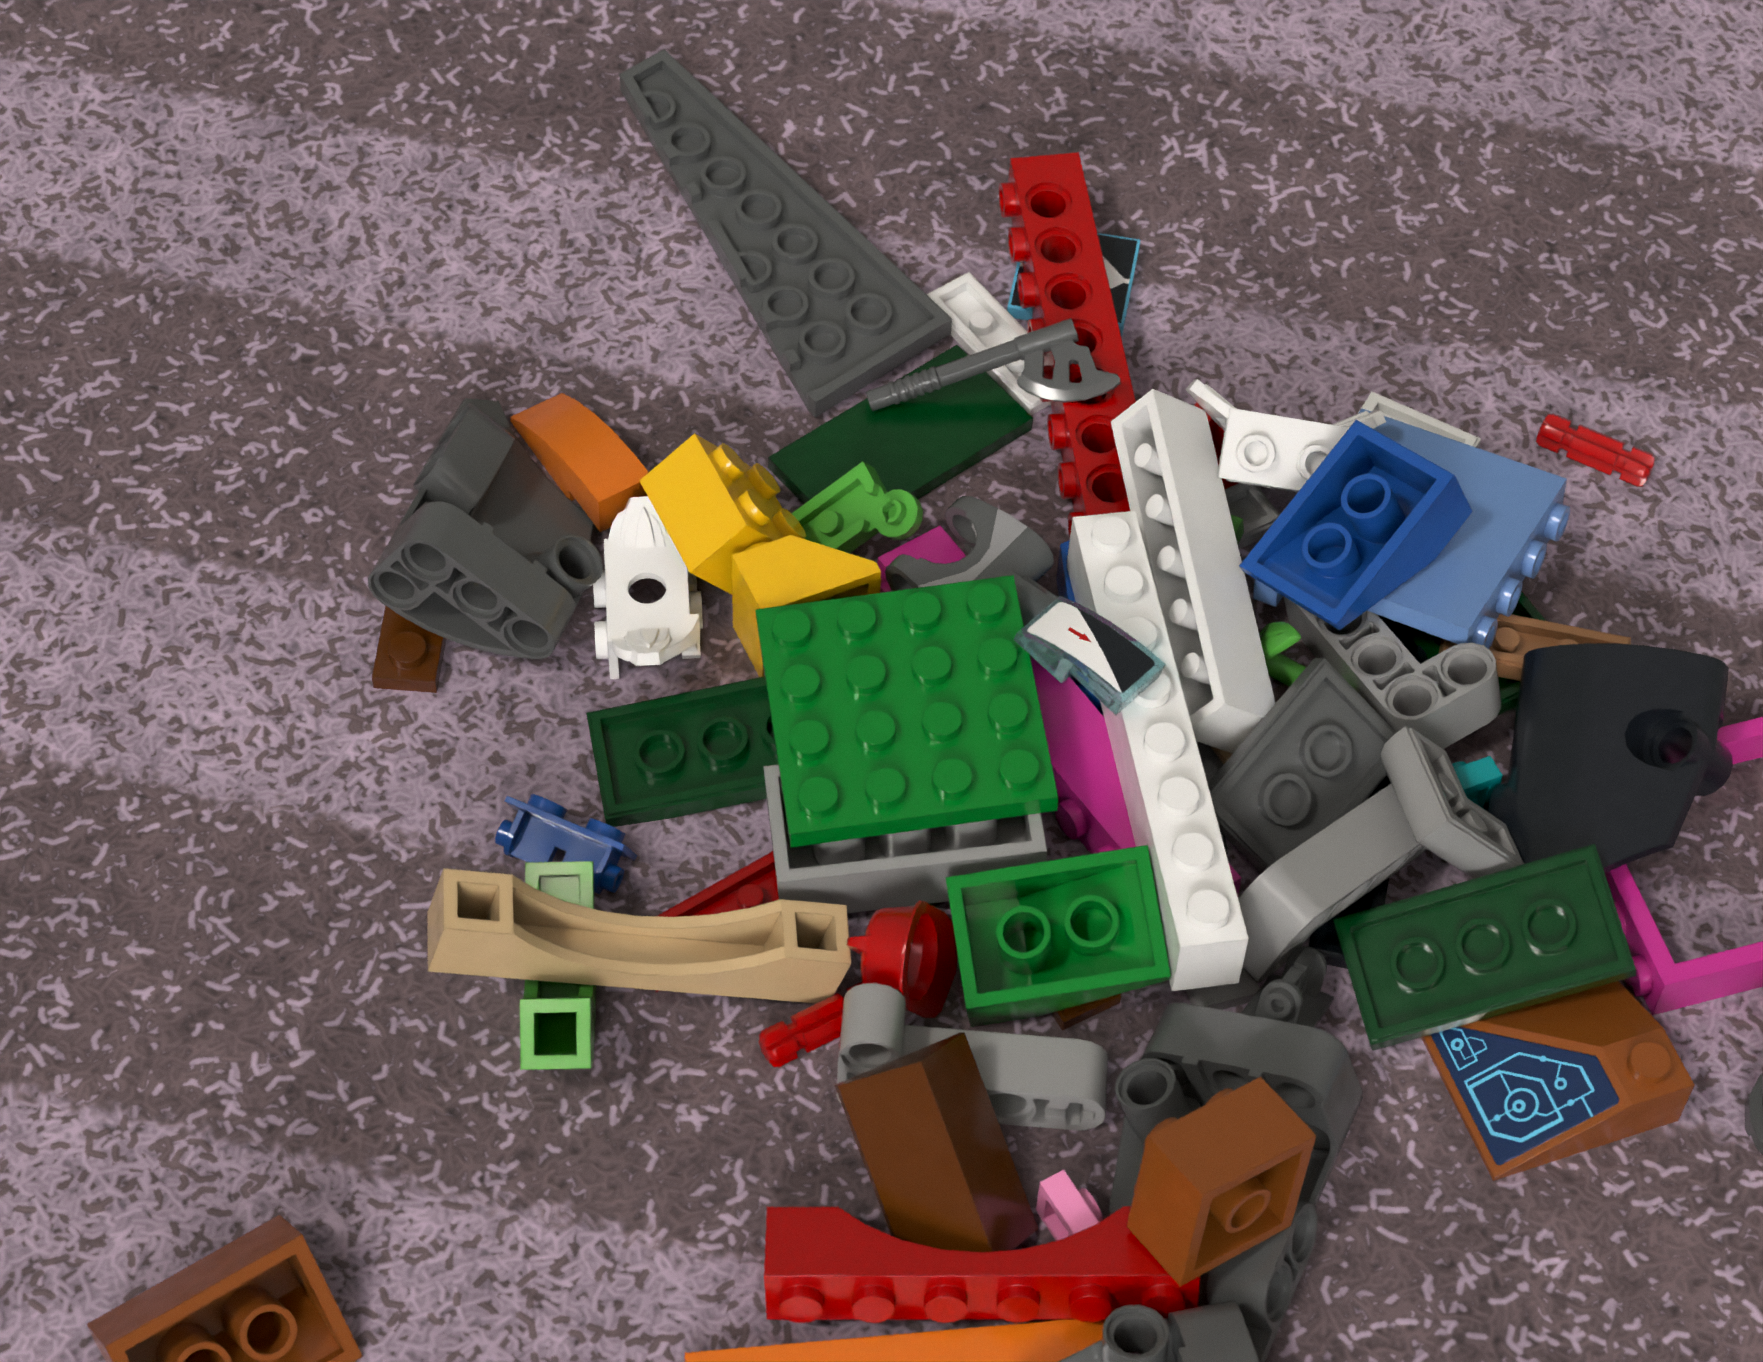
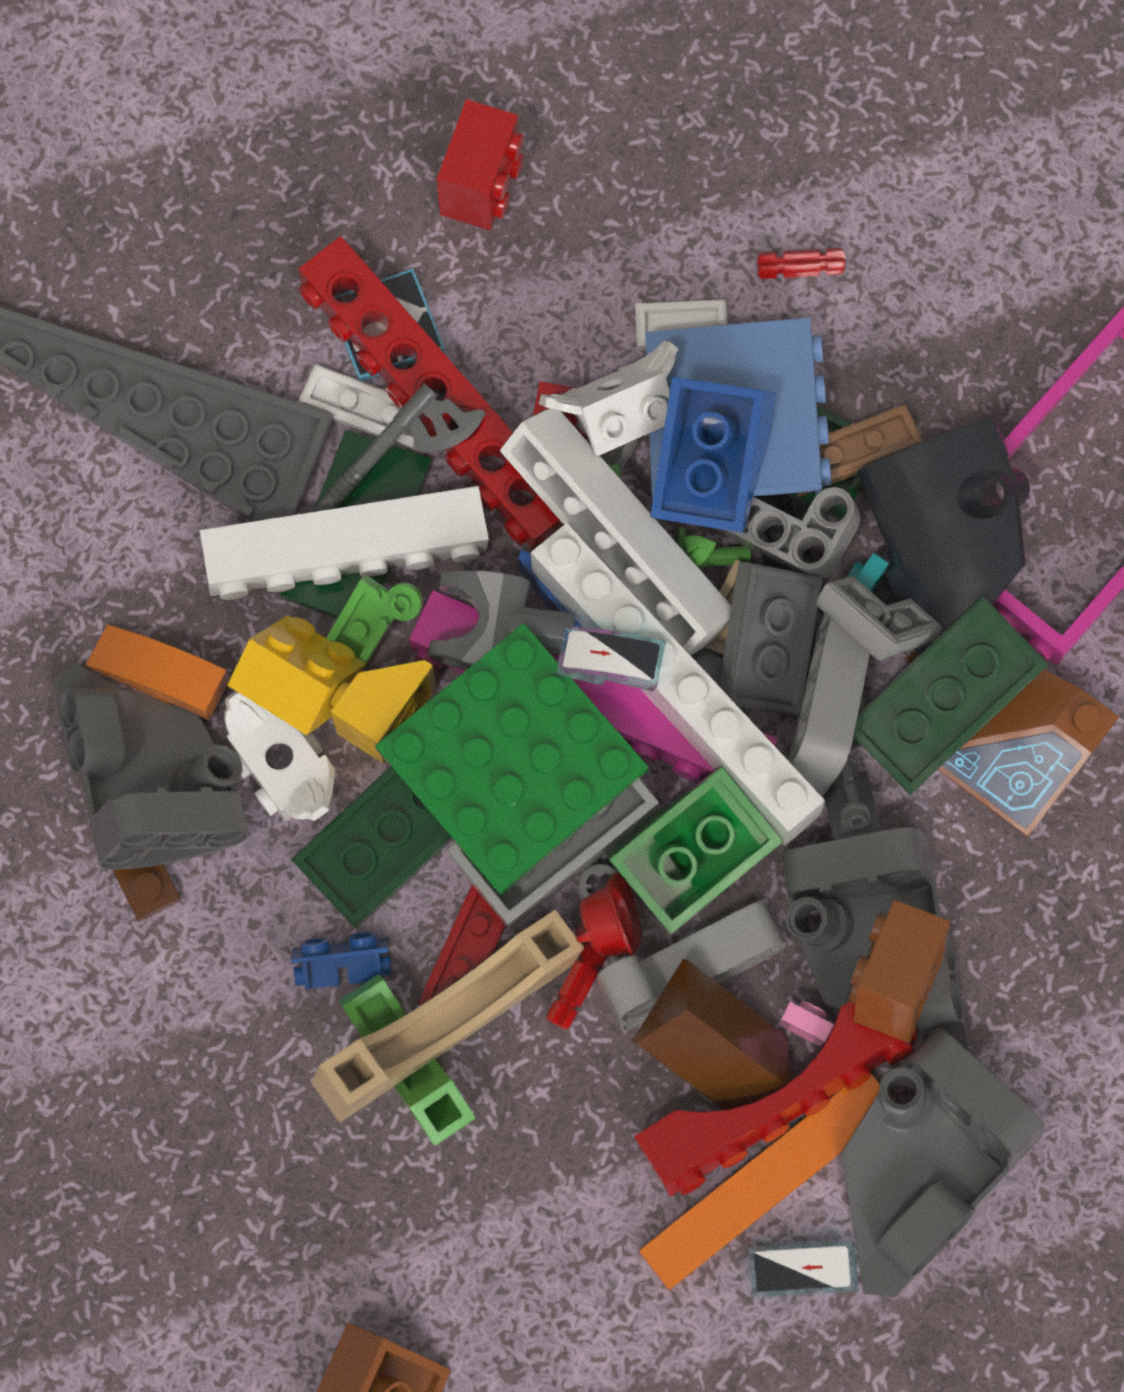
camera: 30 degrees left, 20 degrees up
(853, 418) = (344, 542): none -> white brick
(1279, 169) = (479, 165): none -> red brick

